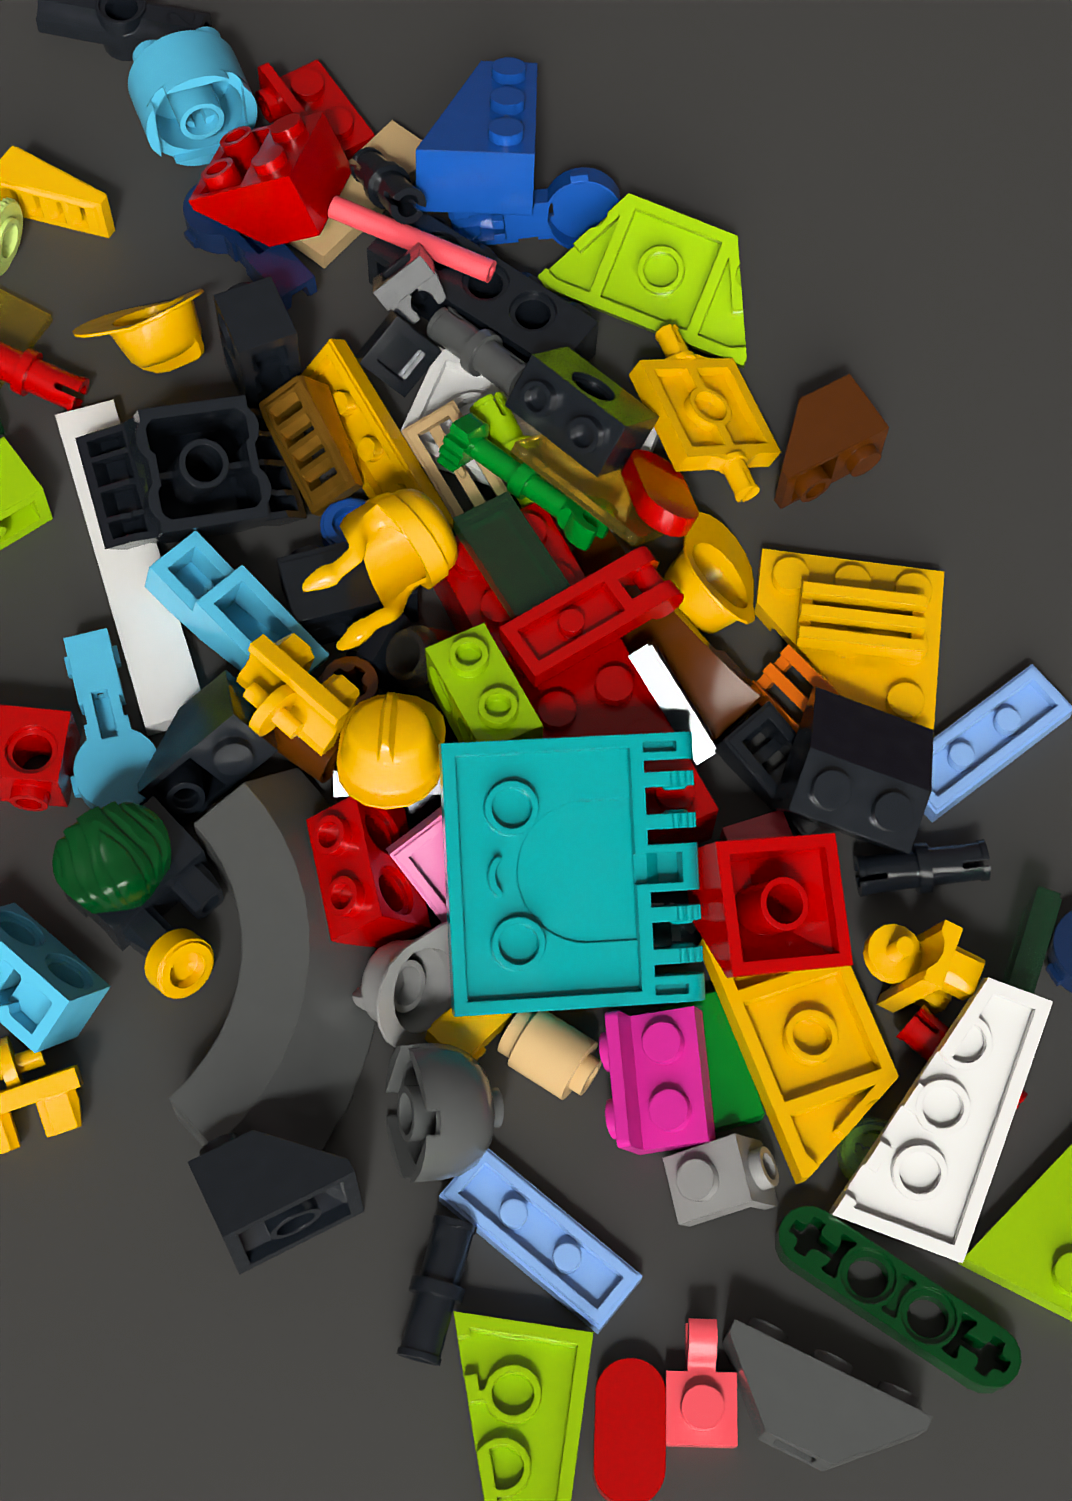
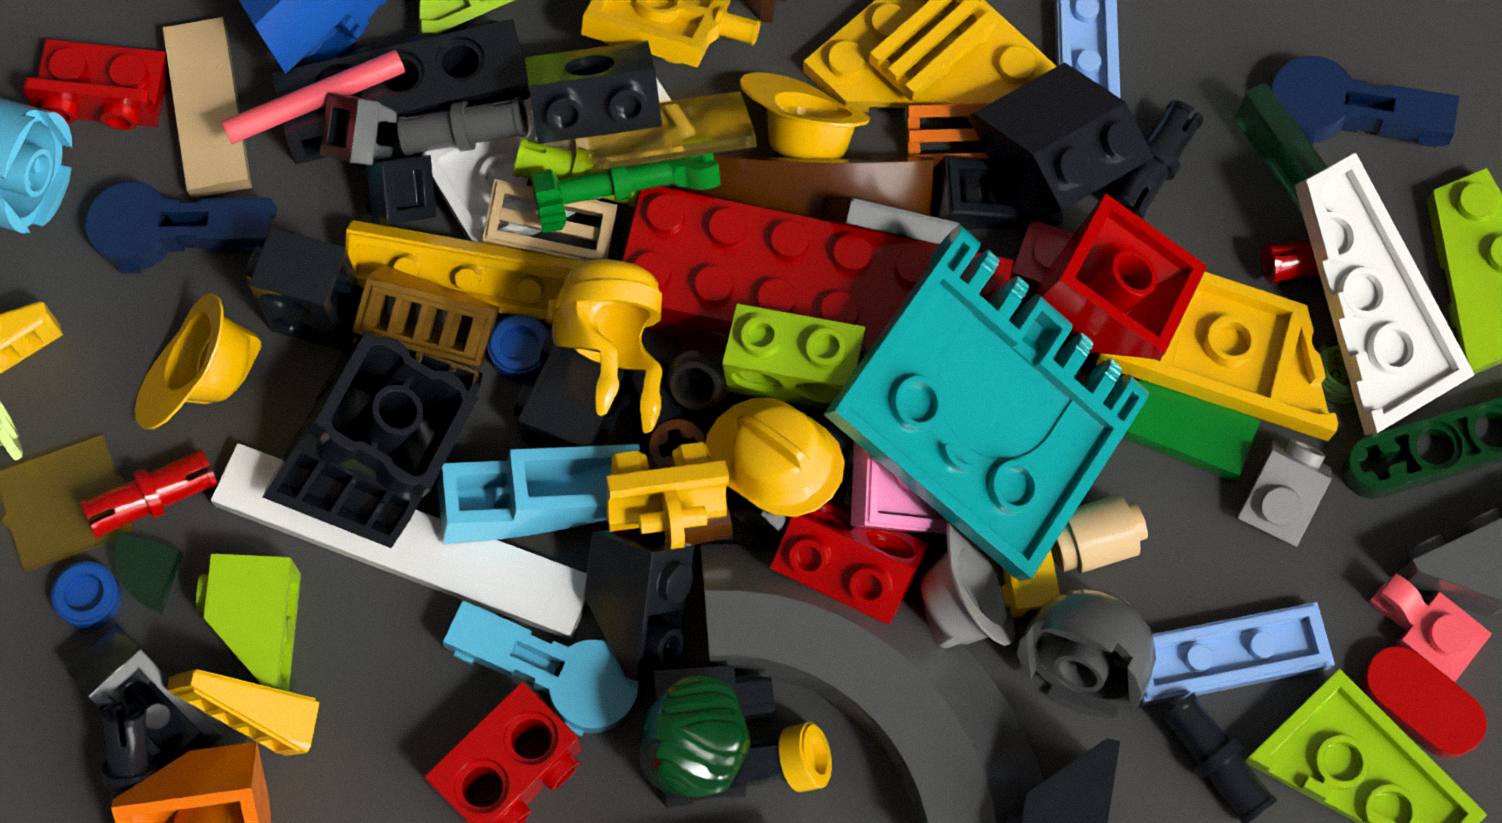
camera: 50 degrees left, 5 degrees up
(274, 179) = (152, 160): red slope -> none
(387, 185) = (243, 76): black pin -> none
(509, 554) = (687, 241): clear green tile -> none
(589, 616) = (789, 226): red plate -> none
(657, 1080) = (1183, 472): dark pink bracket -> none
(659, 493) = (712, 93): red tile -> none
(921, 967) = (1246, 218): yellow hips -> none

